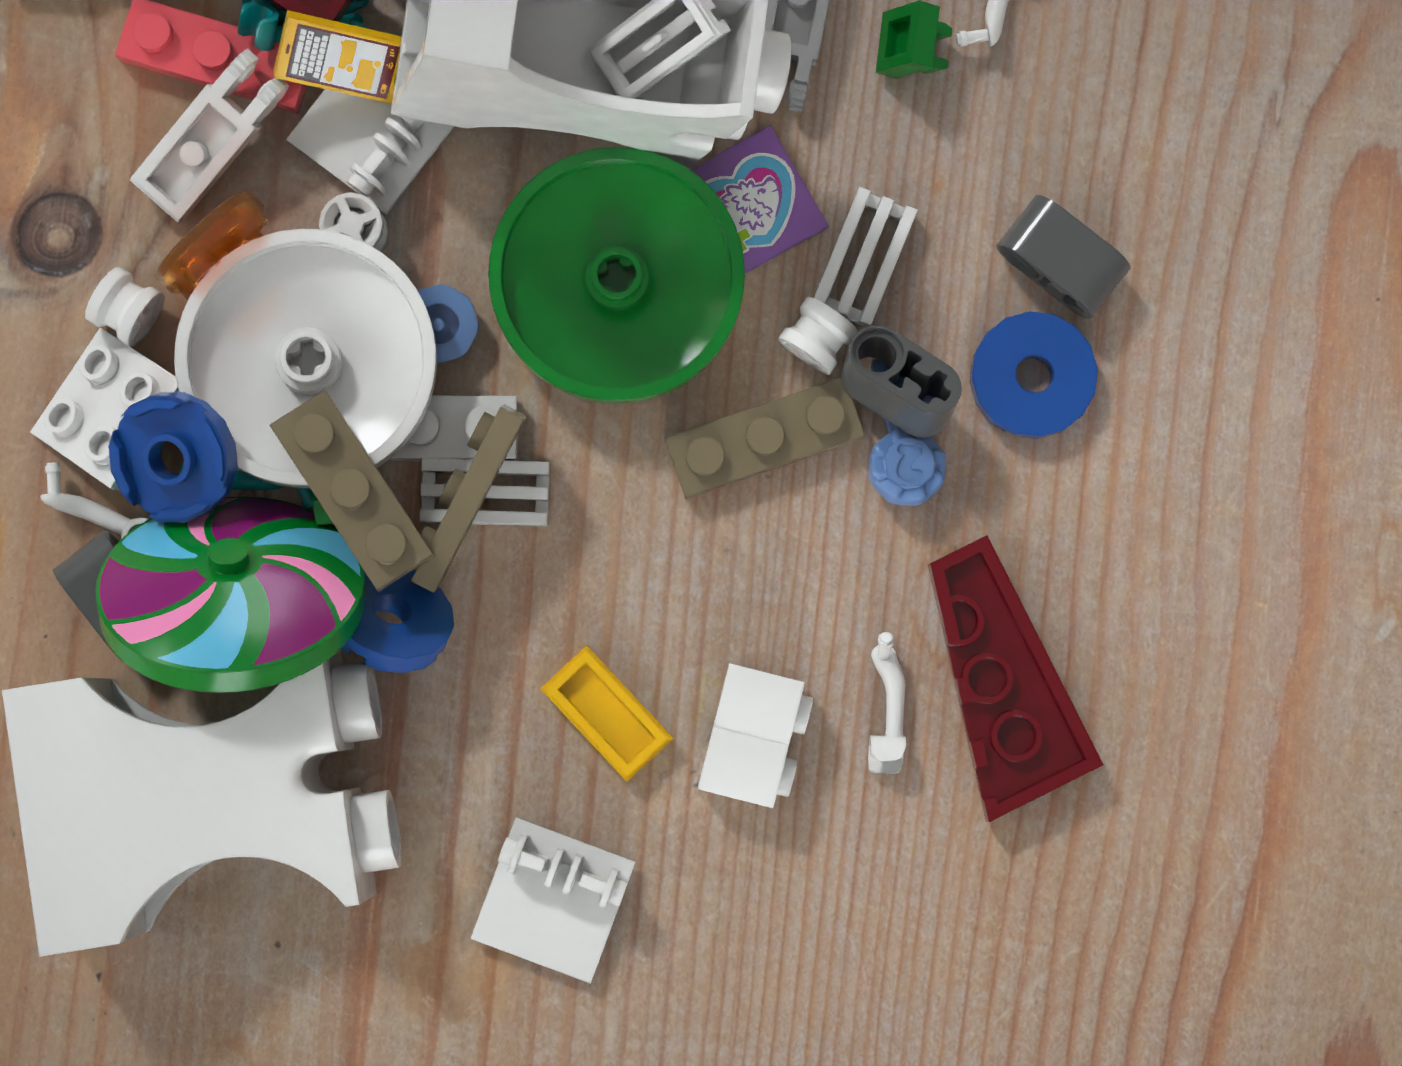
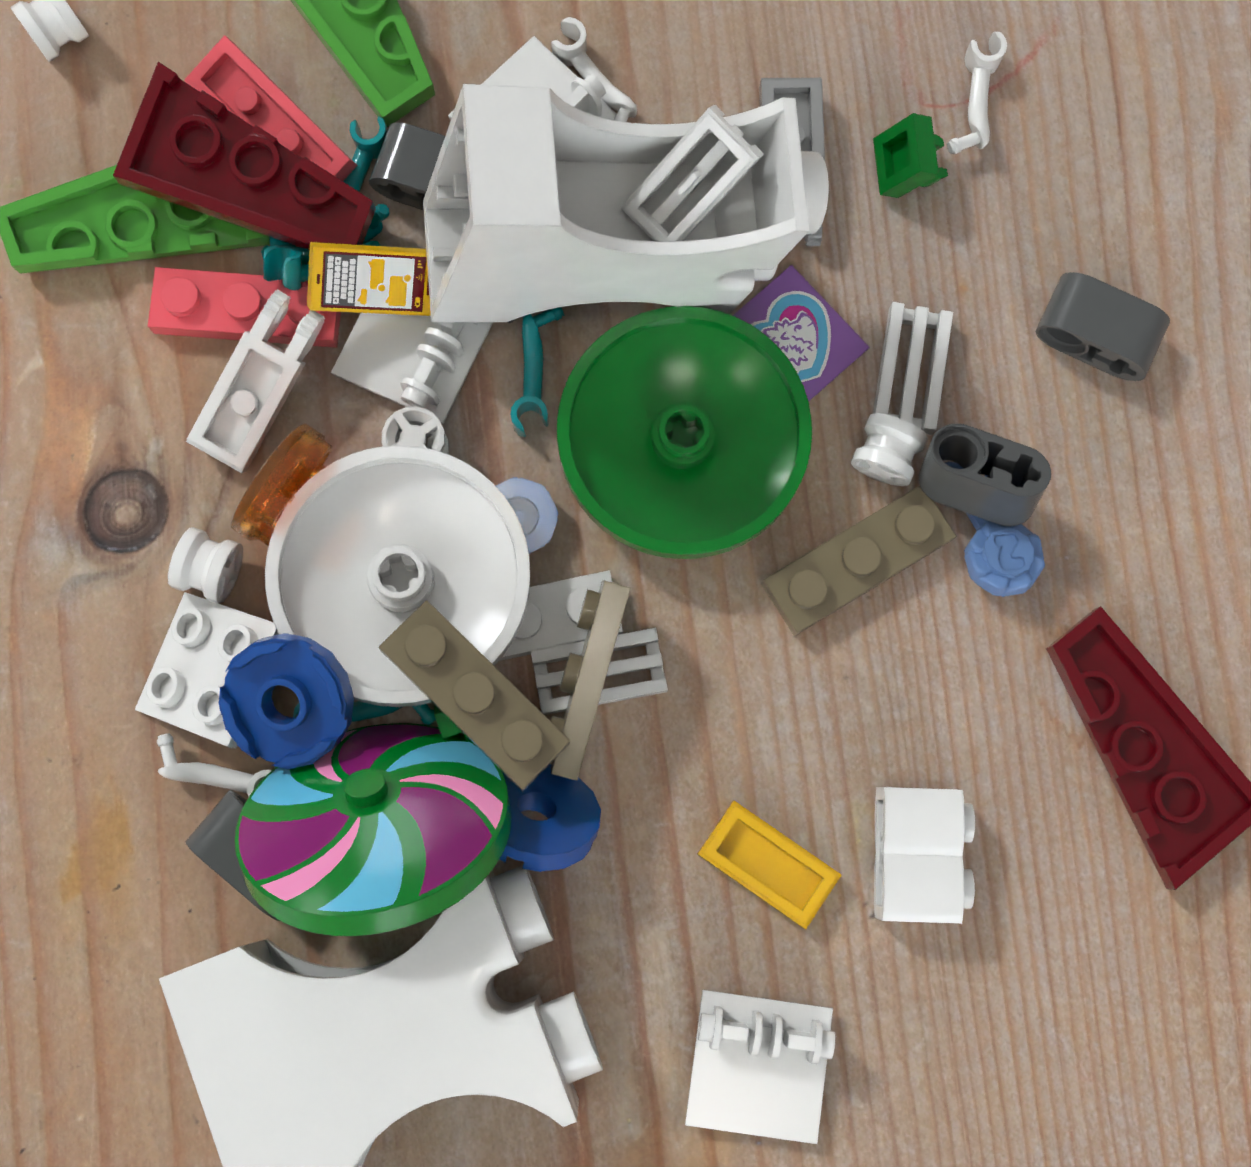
camera: 15 degrees left, 5 degrees down
(486, 181) = (533, 368): none -> teal piece
(887, 751) = (1052, 842): white piece -> none
(1039, 338) = (1129, 424): blue tile -> none

